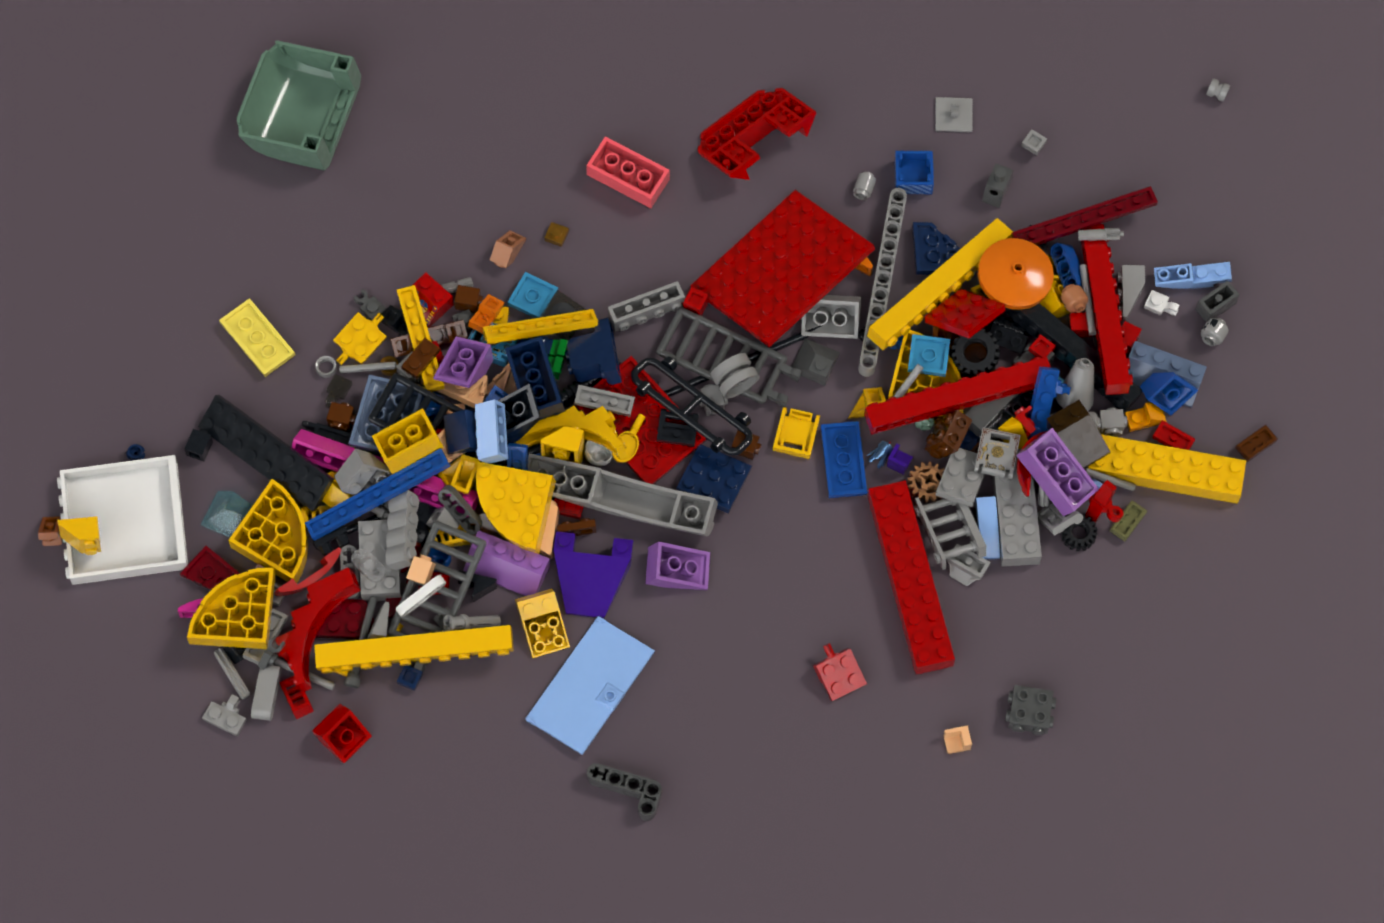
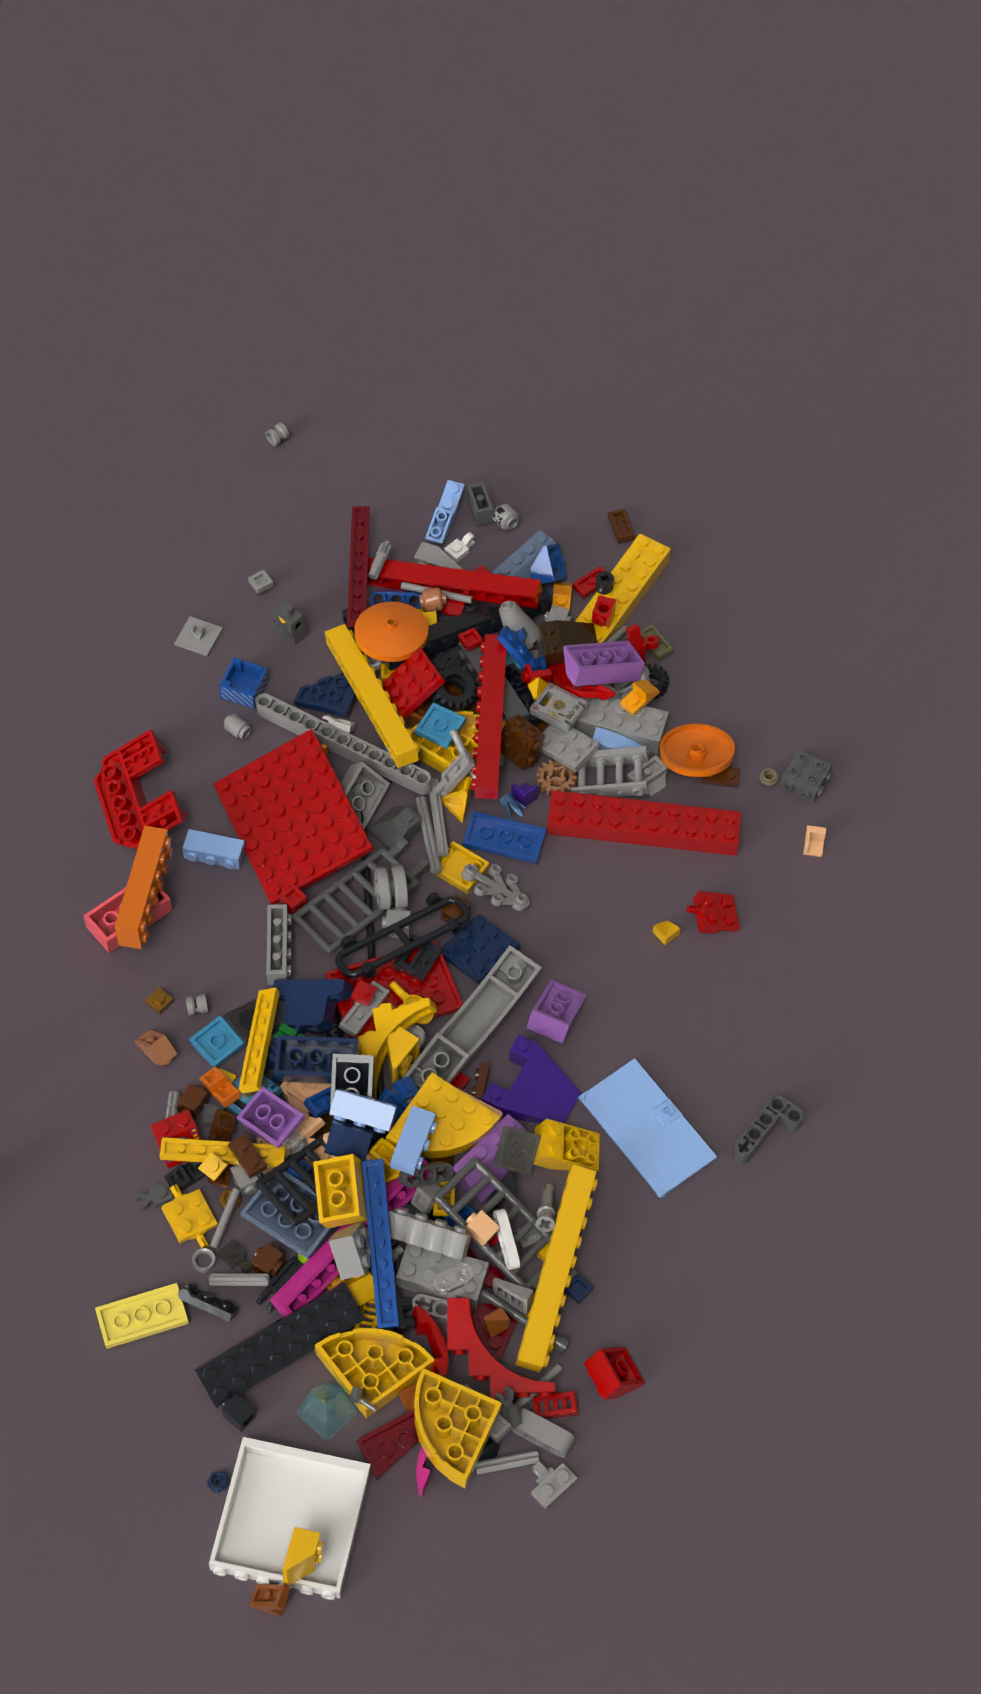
camera: 70 degrees left, 10 degrees down
(236, 526) = (356, 1397): none -> flat silver hand
(286, 383) = (208, 1302): none -> black plate
(315, 400) = (239, 1280): none -> light grey axle
(348, 618) = (496, 1322): none -> dark orange slope
(401, 335) = (212, 1166): none -> yellow plate
(450, 391) = (295, 1141): none -> clear bracket
(475, 482) = (413, 1141): none -> light blue brick
(517, 578) = (517, 1150): none -> dark grey plate
(536, 462) = (405, 1088): none -> blue plate
(562, 265) = (201, 1004): none -> light grey wheel
(616, 393) = (364, 993): none -> red plate
(644, 170) = (143, 887): none -> orange brick
(724, 217) = (213, 849): none -> light blue brick
(783, 471) = (497, 889): none -> light grey plant
(801, 636) = (666, 931): none -> yellow slope
(817, 392) = (428, 835): none -> light grey axle
(839, 394) = (438, 820): none -> light grey axle
(883, 387) = (455, 773): none -> light grey hinge
(905, 272) = (342, 724): none -> white plate
(998, 631) = (726, 778): none -> reddish brown plate
(1012, 598) = (697, 750): none -> orange dish
(1018, 671) = (771, 773): none -> dark tan plate
(1041, 521) = (639, 697): none -> light orange slope
(1130, 449) = (603, 611): none -> red brick
(1159, 448) = (607, 587): none -> black wheel

